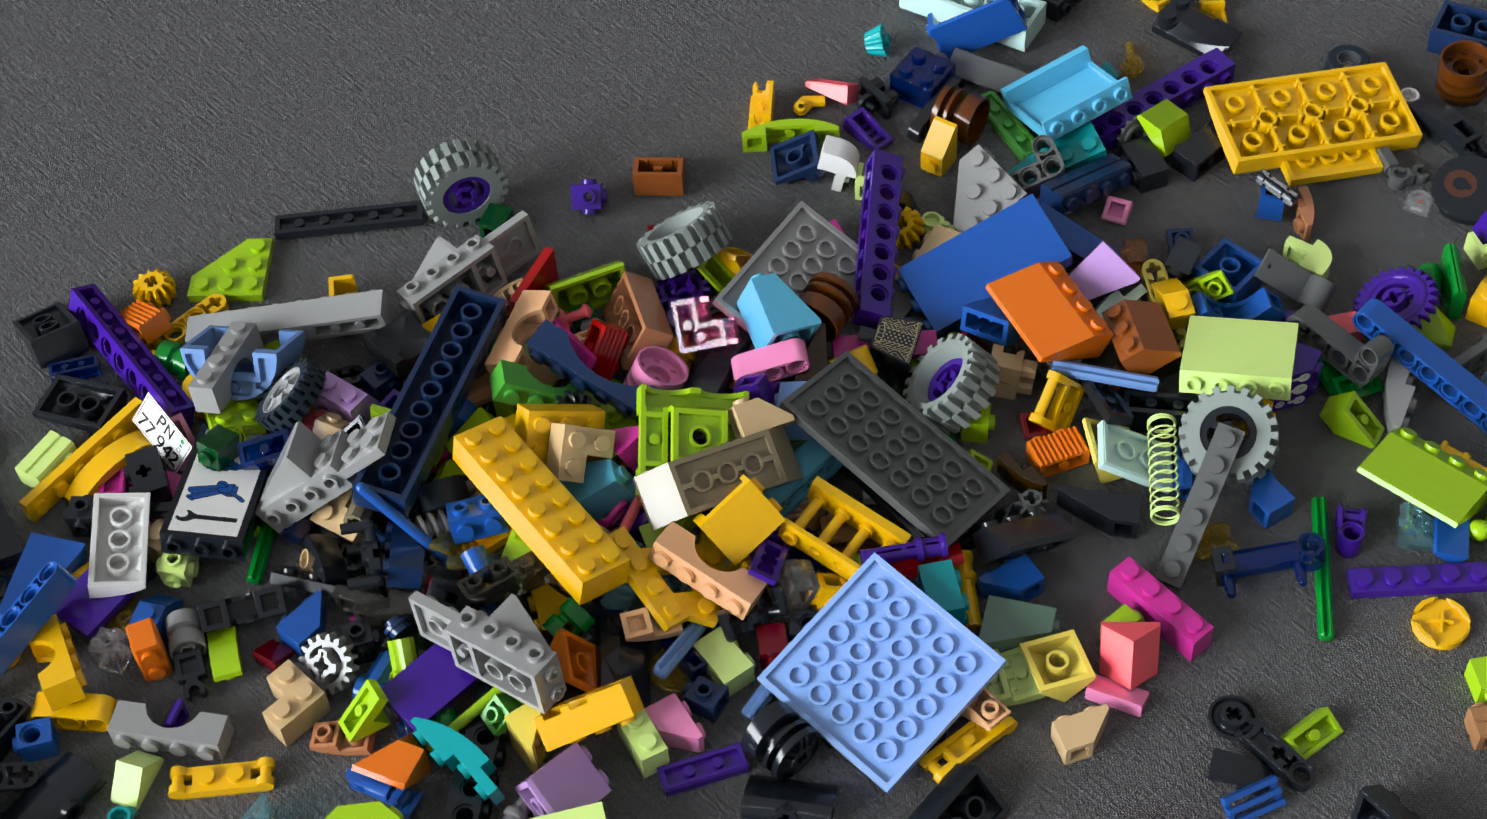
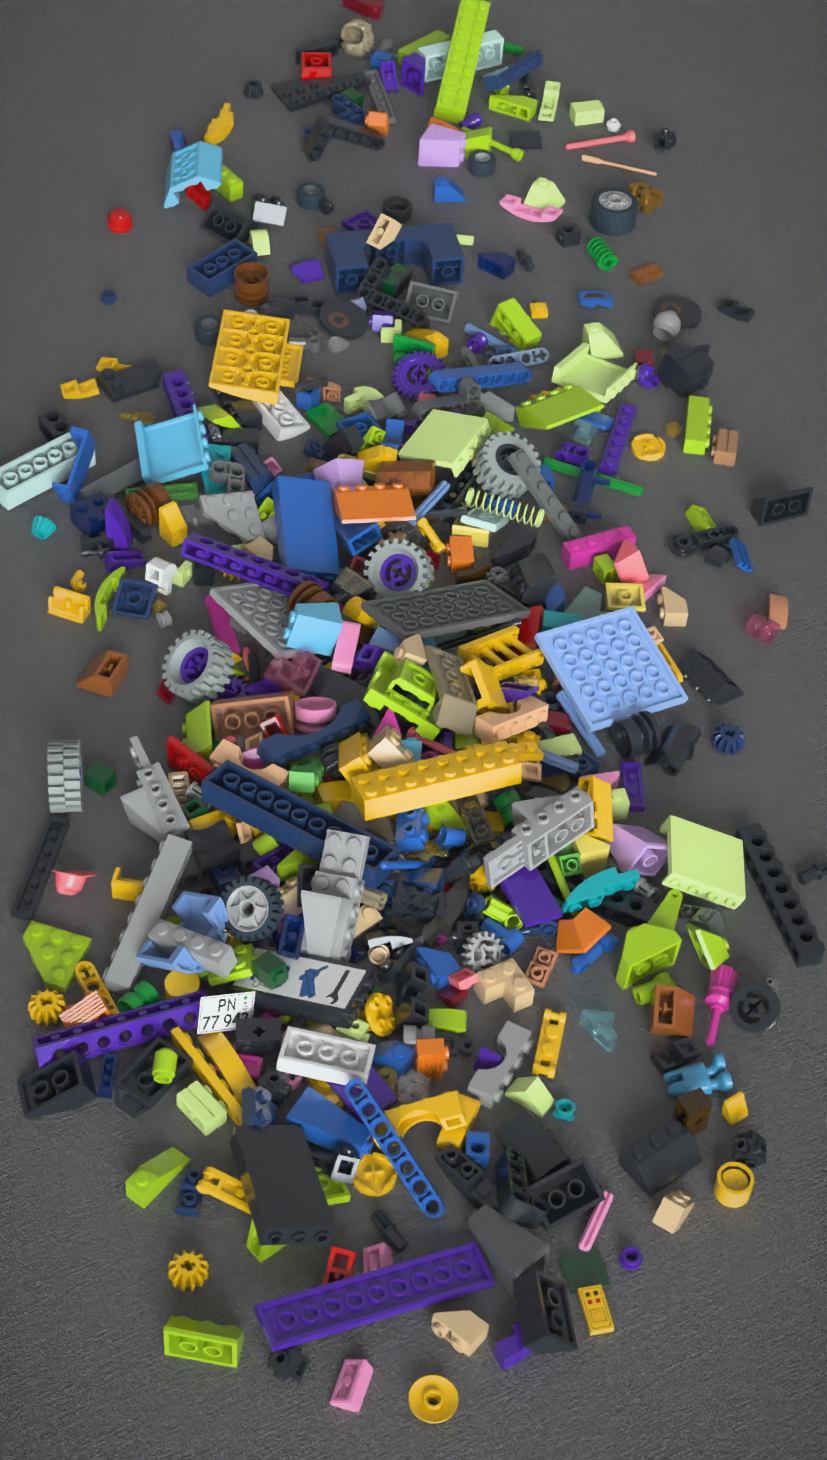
camera: 80 degrees left, 5 degrees down
(36, 511) = (258, 1108): none -> dark blue slope
(76, 402) = (164, 1065): none -> lime brick
(208, 580) = (379, 1014): none -> yellow plate
(281, 650) = (463, 978): none -> coral plate
(336, 248) = (71, 881): none -> coral piece
(365, 712) = (537, 938): lime slope -> none
(579, 196) = (105, 718): dark purple brick -> none
(780, 196) = (164, 619): none -> light grey bush
(799, 186) = (159, 606): none -> clear yellow plate
(838, 90) = (77, 561): slope -> none
(895, 96) = (118, 527): none -> dark purple slope
(918, 550) = (531, 623): dark purple pin -> none
(1220, 192) = (282, 419): none -> white slope
(1255, 233) = (324, 419): none -> green piece

